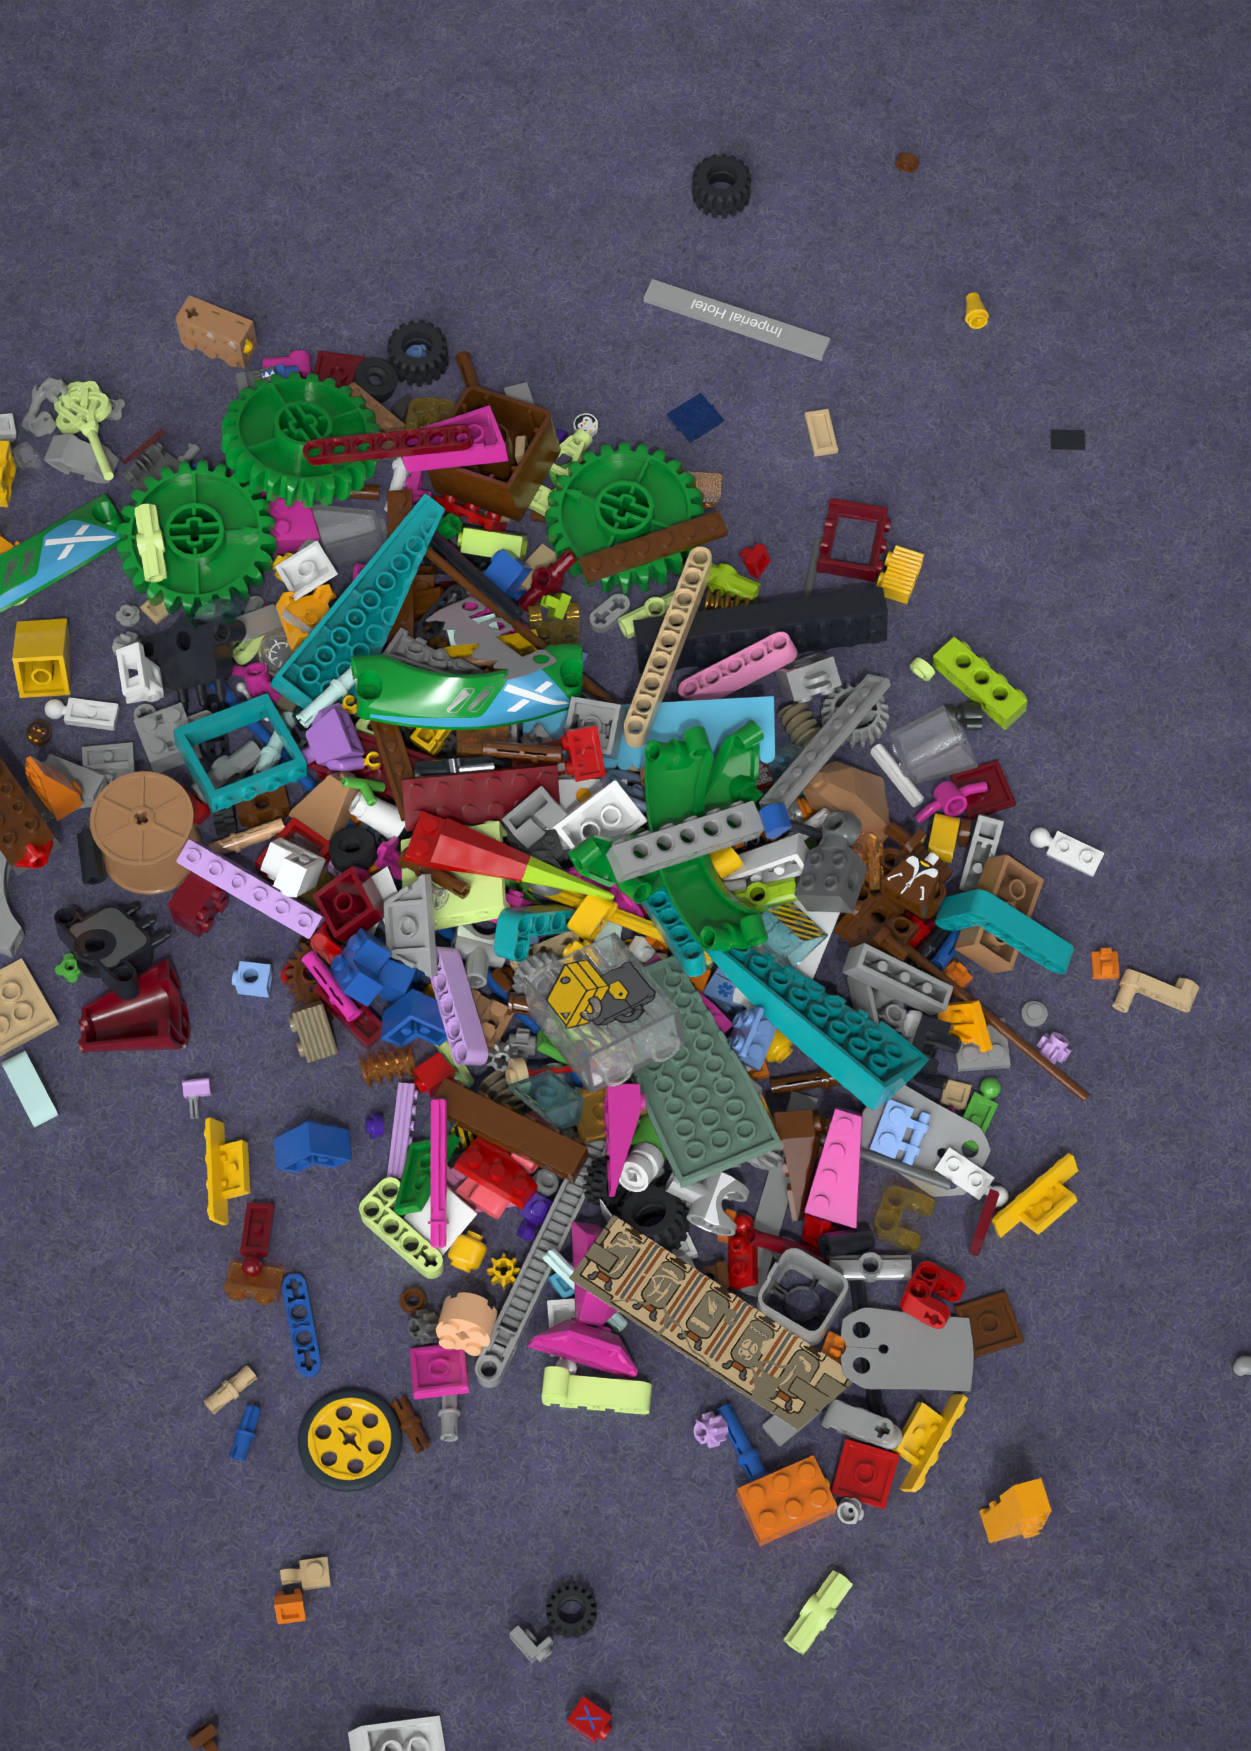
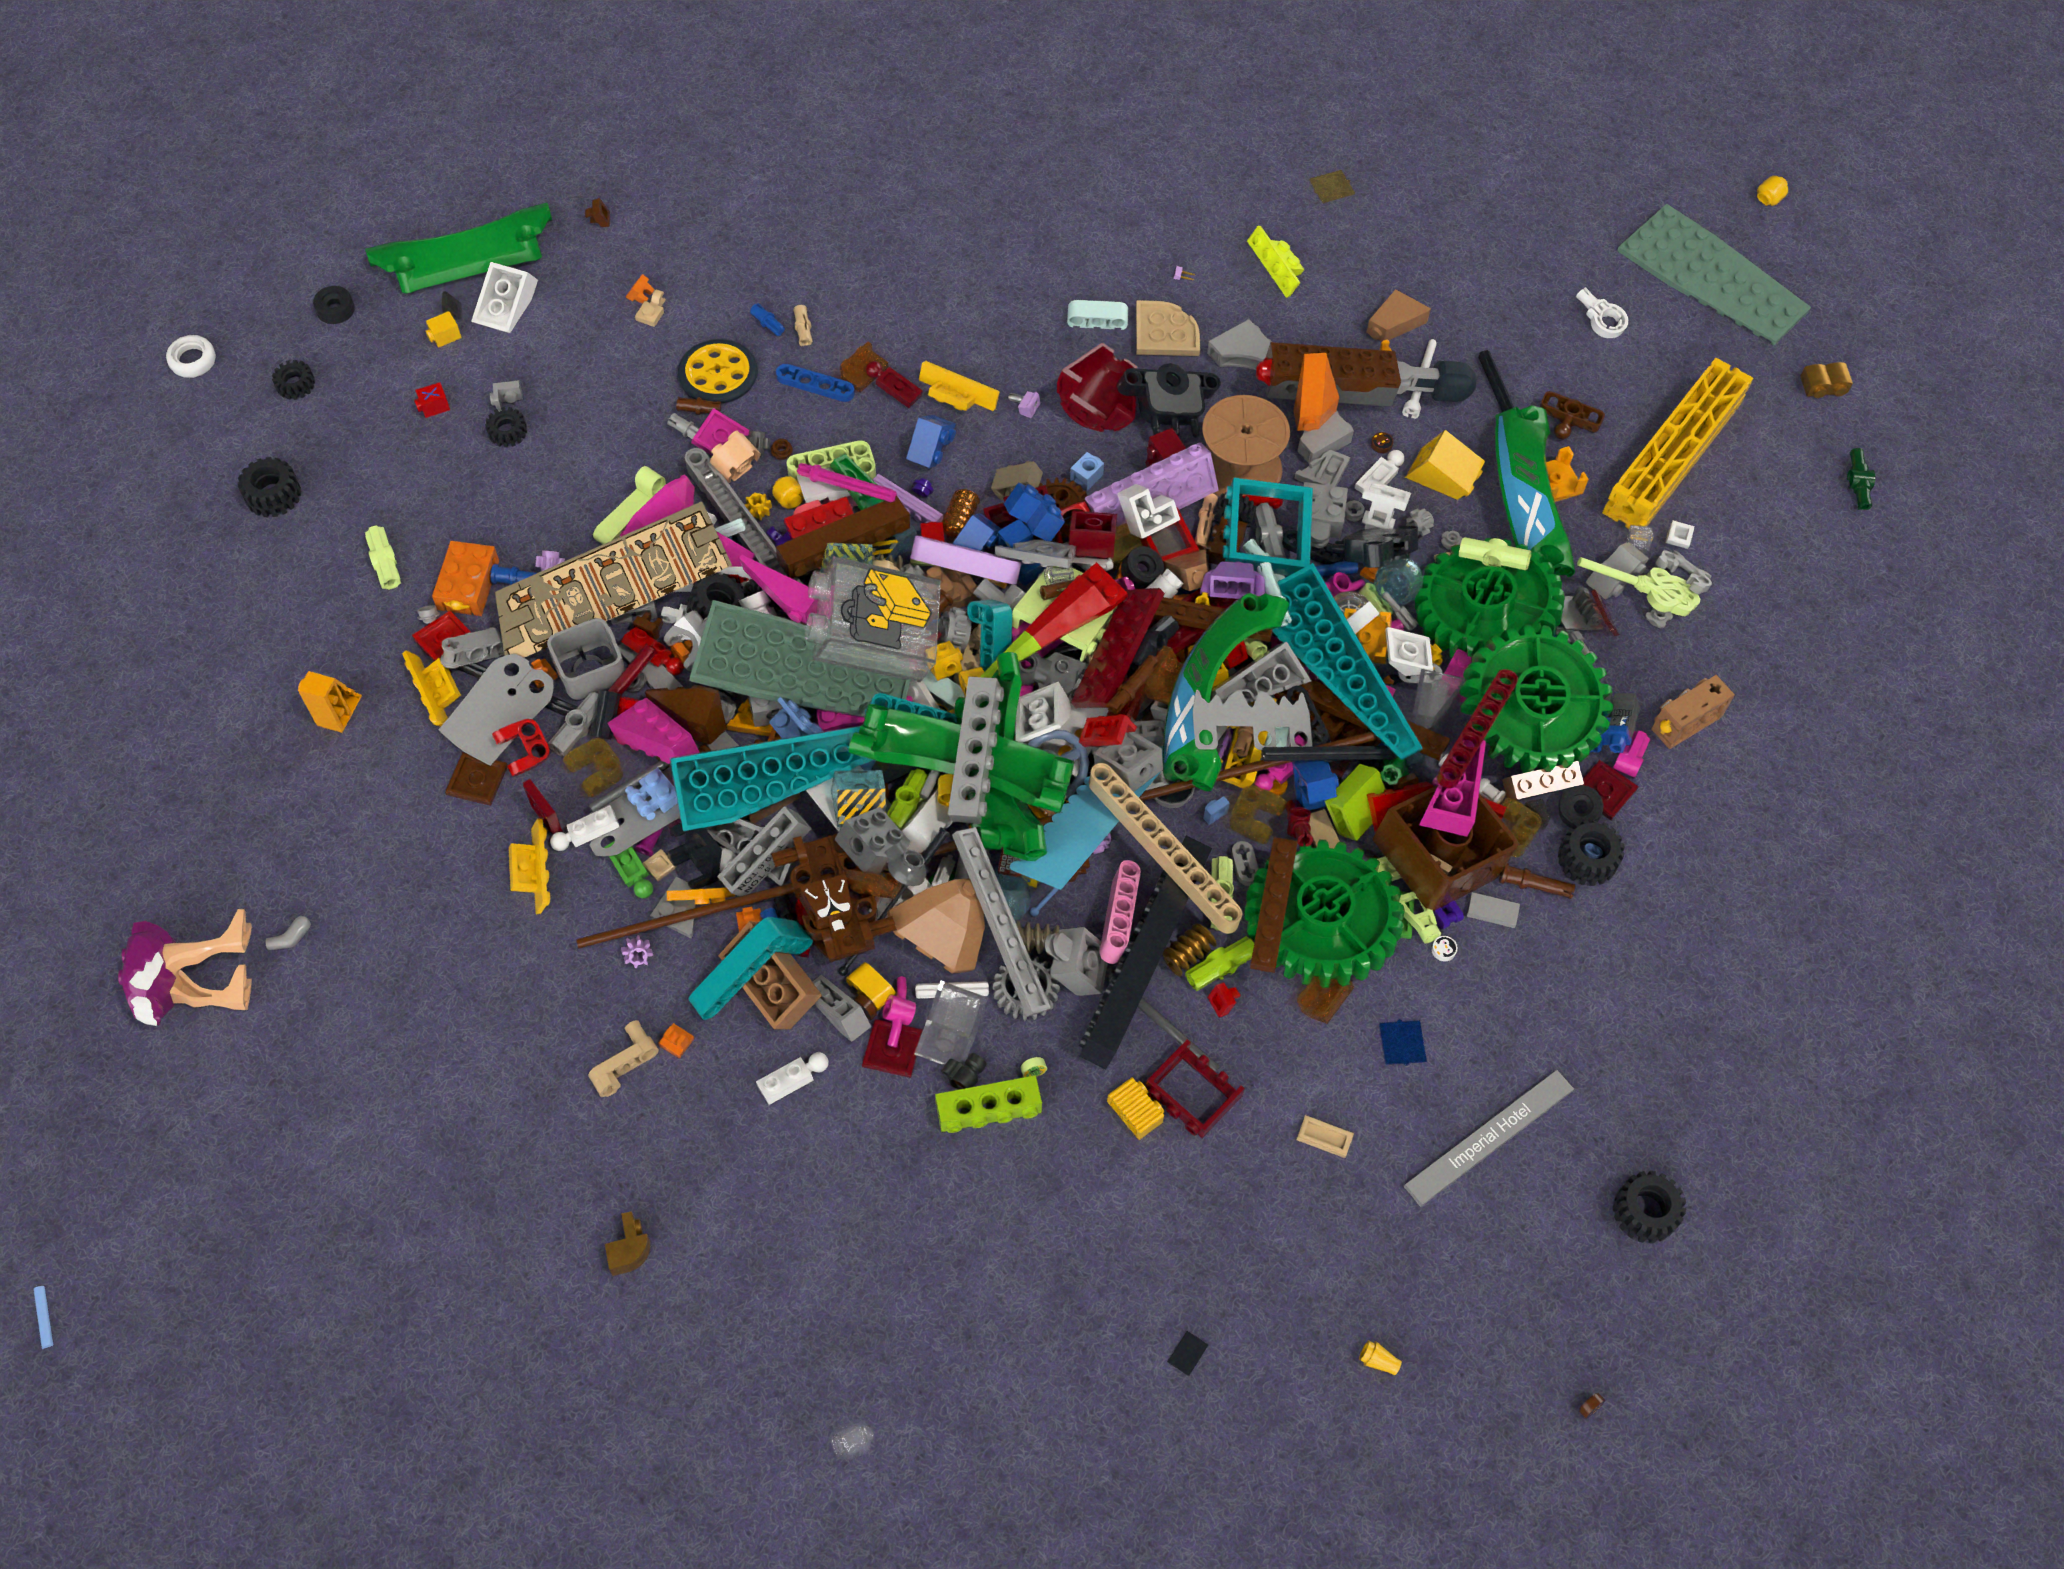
camera: 120 degrees right, 5 degrees down
(260, 622) = (1383, 598): light grey tile -> none
(330, 985) = (1053, 490): dark pink pin -> none
(366, 787) = (1182, 581): bright green piece -> none
(533, 816) = (1072, 667): light grey piece -> none
(556, 605) = (1273, 817): lime tile -> none
(775, 820) = (947, 819): blue brick -> none
(1034, 1014) = (677, 960): light grey plate -> none

